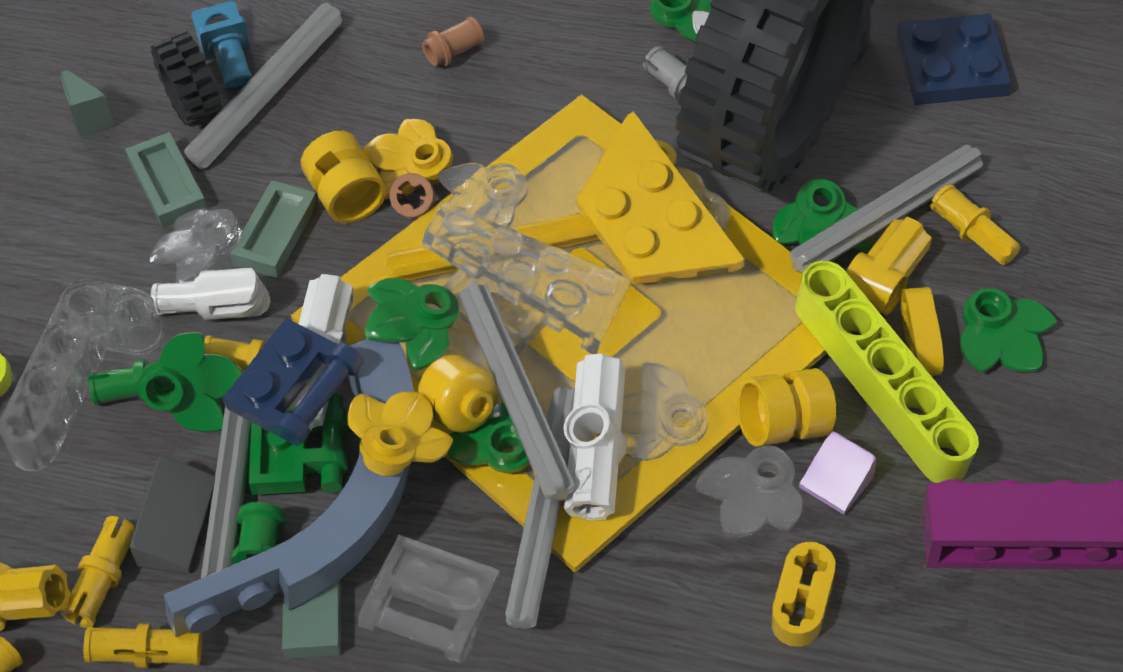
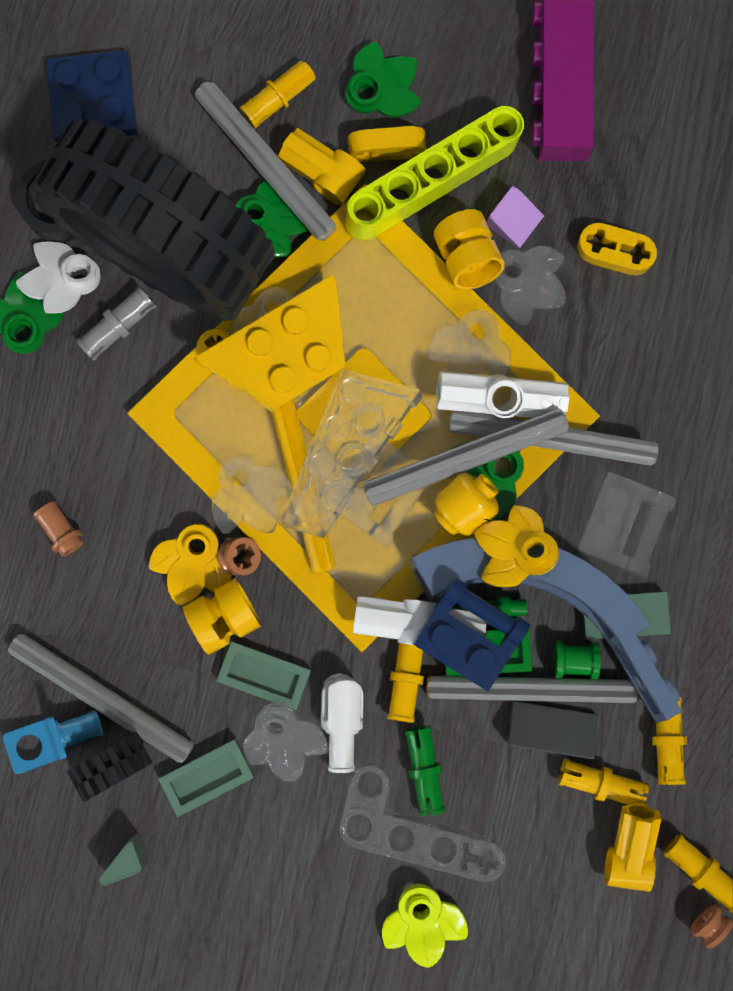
camera: 90 degrees left, 30 degrees up
(197, 382) = (441, 729): green plate -> none
(406, 318) = (403, 547): green plate -> none

